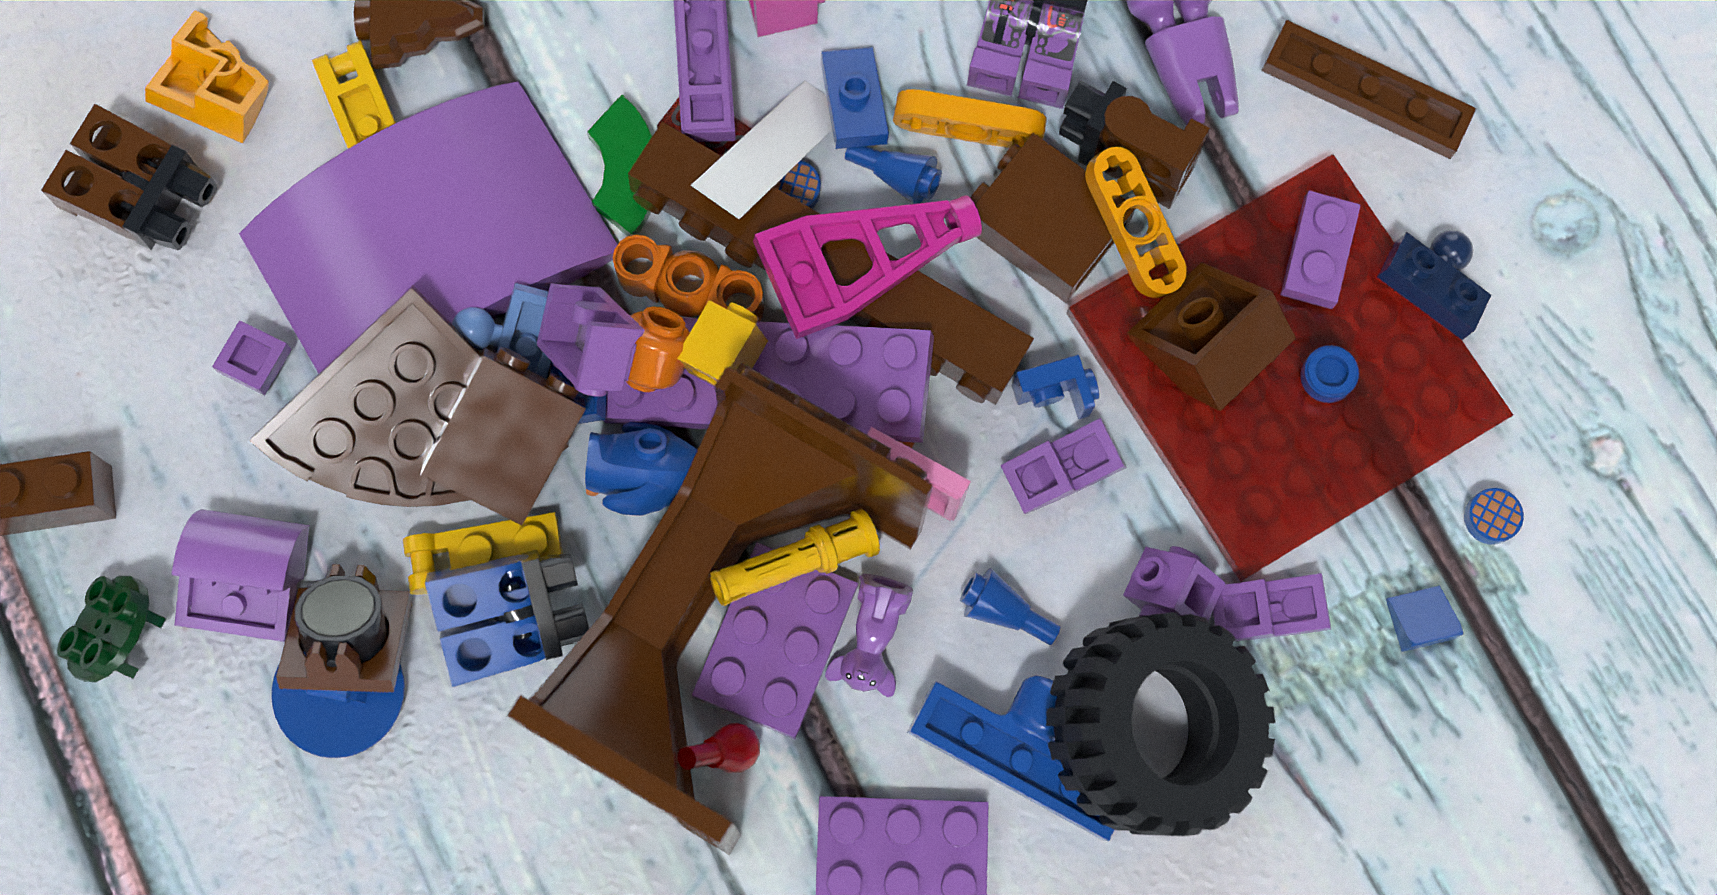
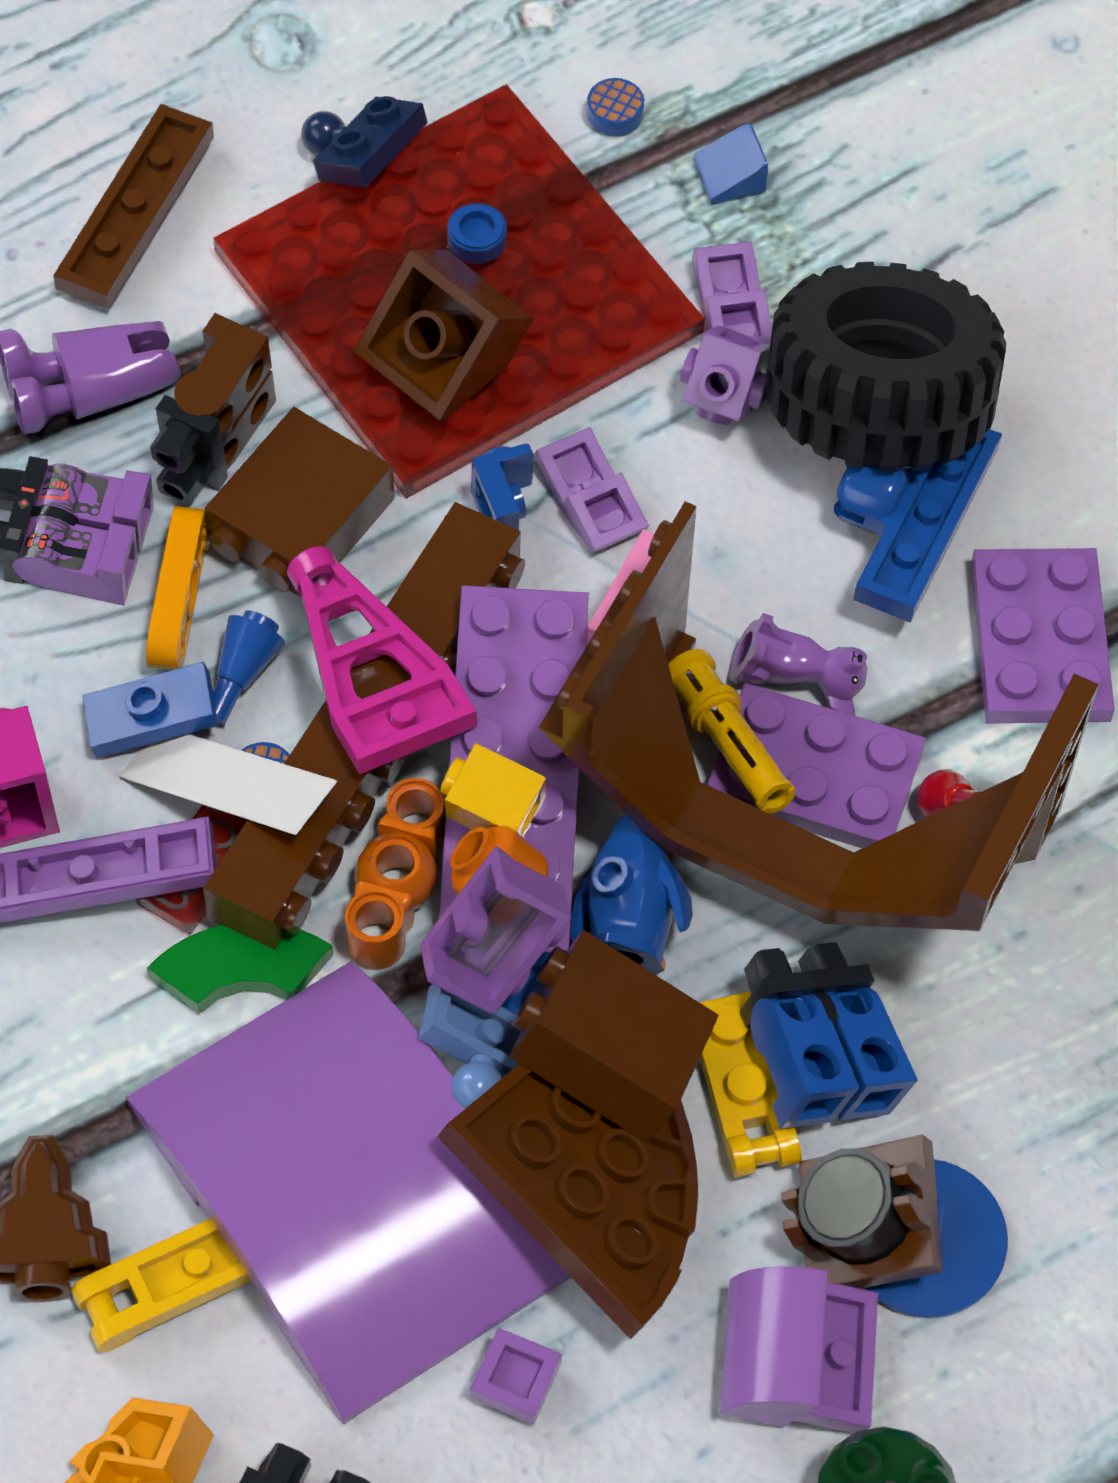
camera: 90 degrees left, 15 degrees down
(995, 602) = (752, 550): blue cone -> none
(1145, 201) = (277, 414): light orange beam -> none
(1320, 249) = (334, 240): medium lavender plate -> none

